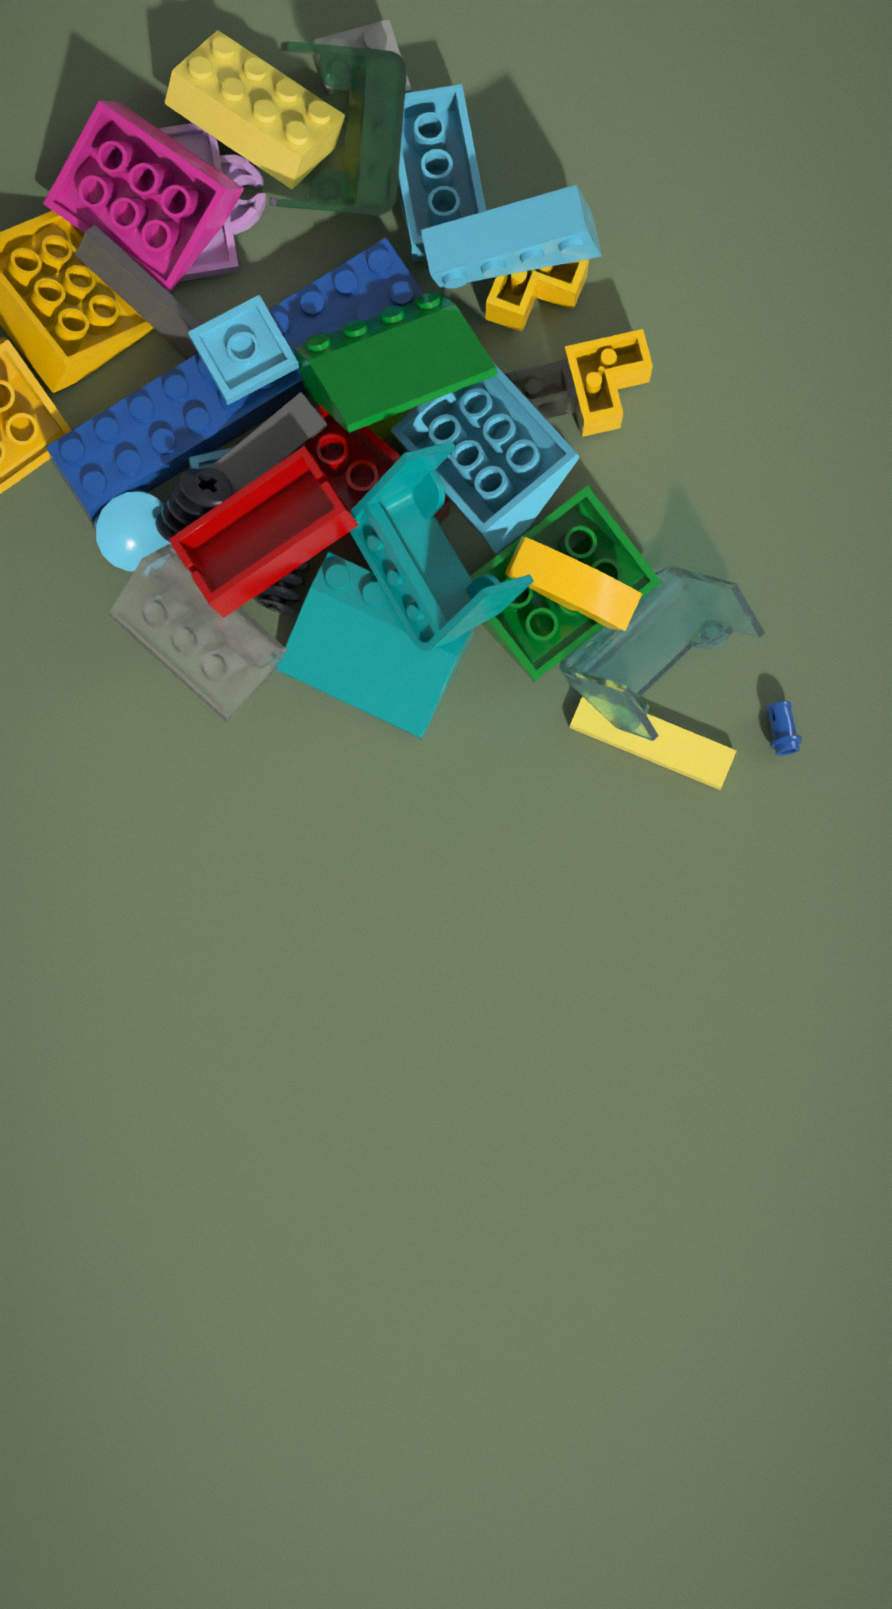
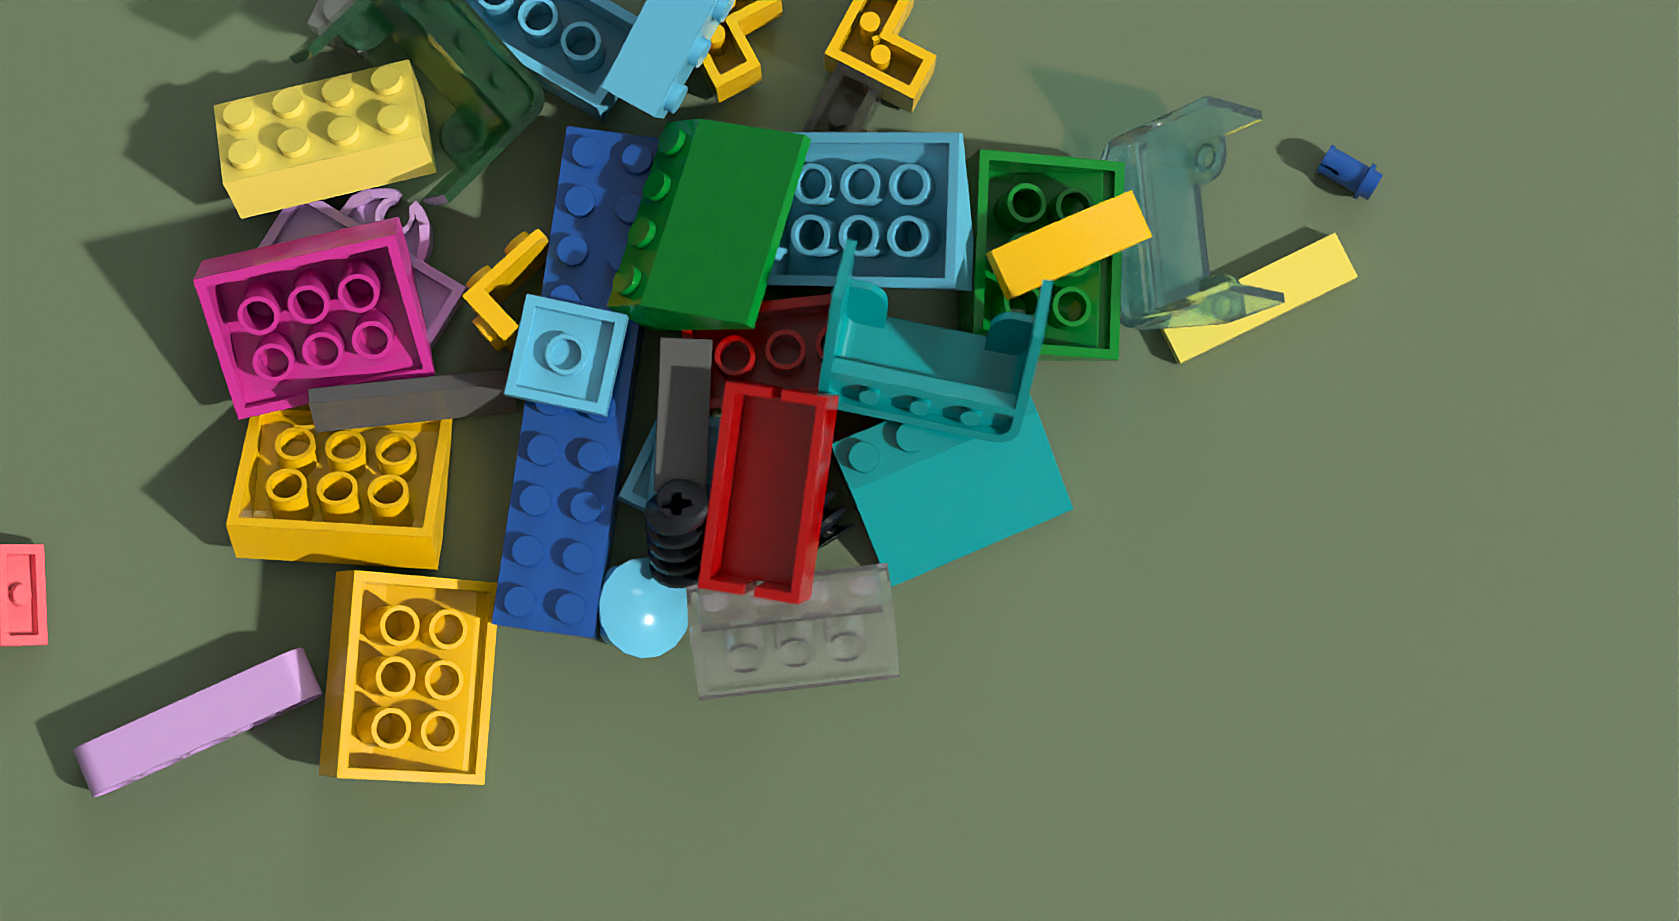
camera: 50 degrees left, 5 degrees up
(249, 278) = (492, 286): none -> yellow bracket

